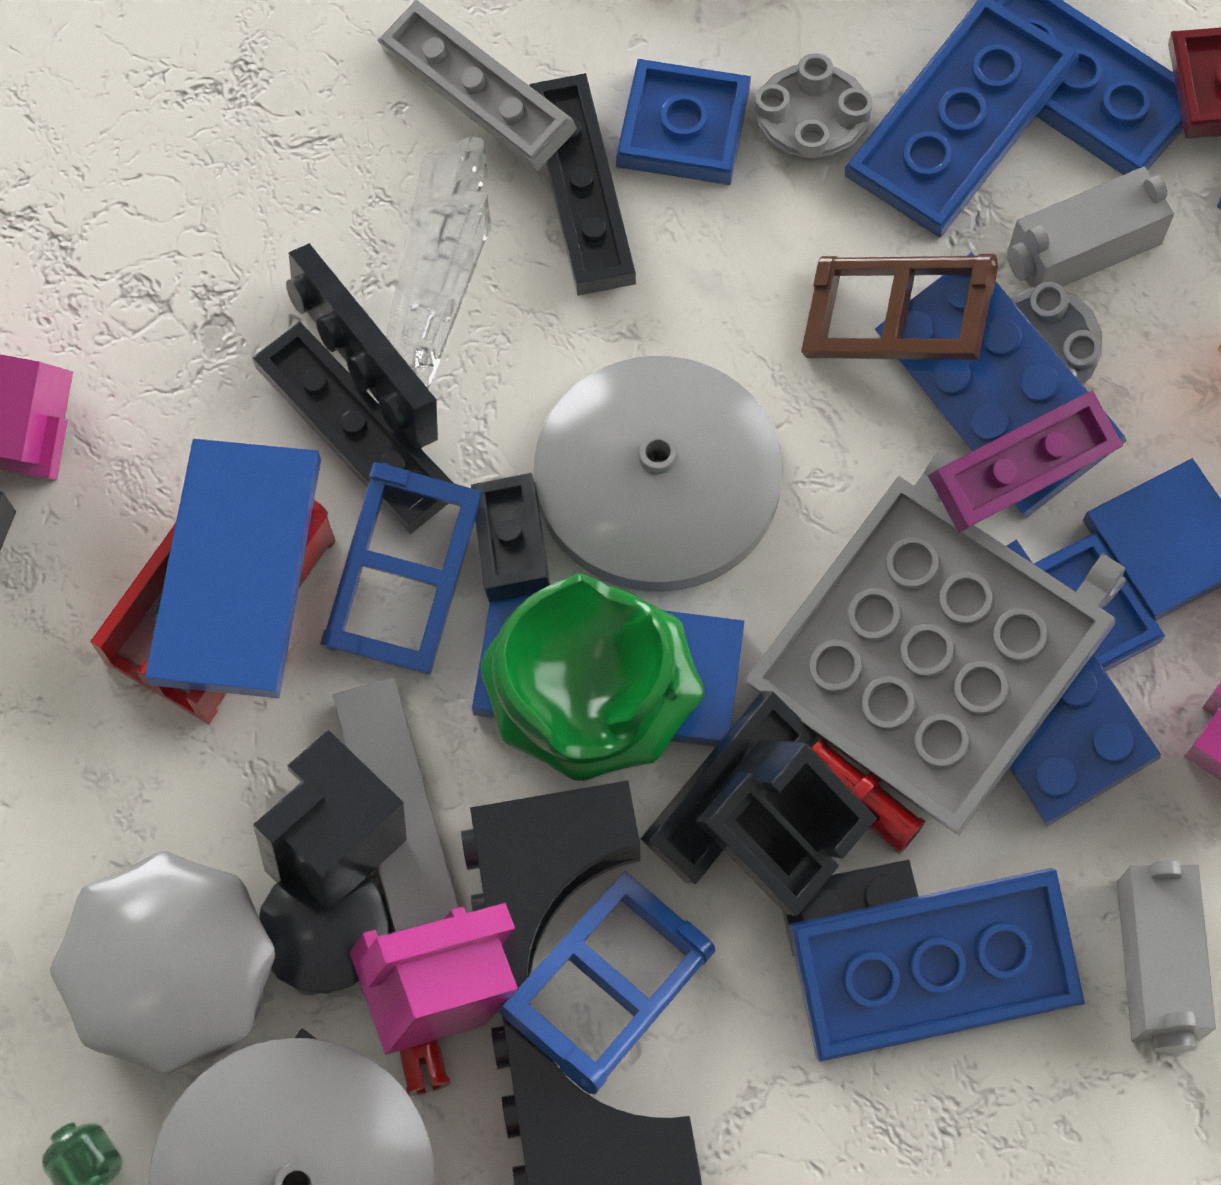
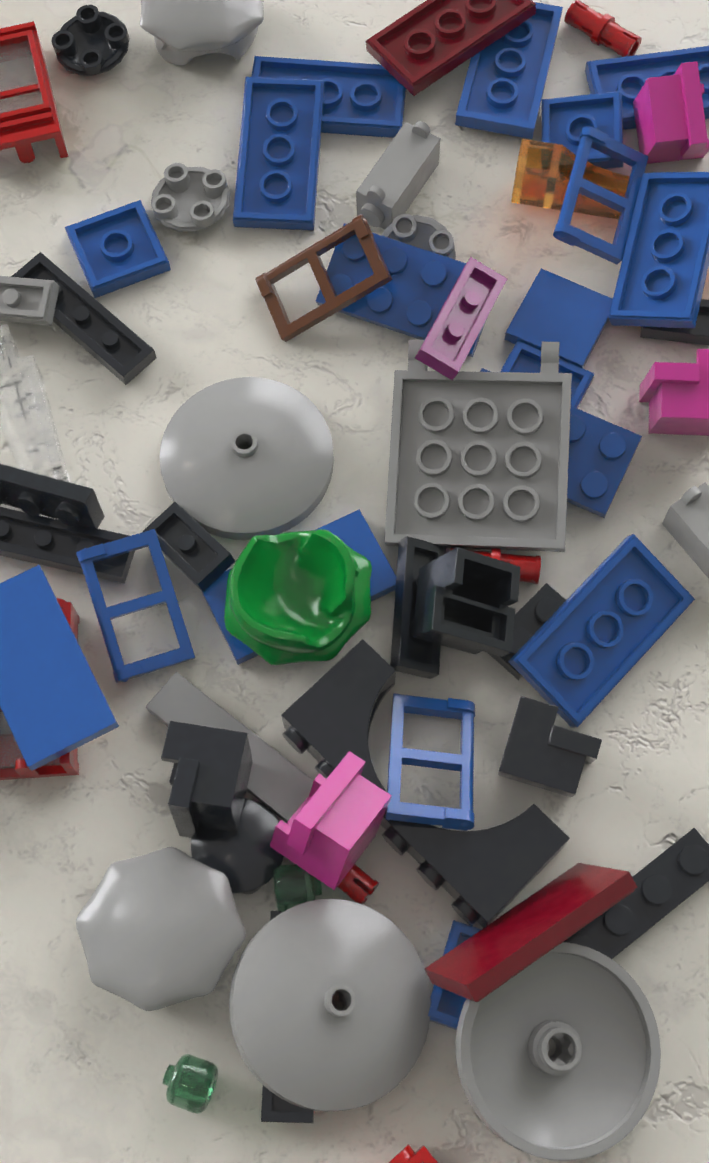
camera: 35 degrees left, 0 degrees up
(346, 1019) = (294, 886): none -> clear green piece
(742, 1061) = (546, 753): none -> black plate

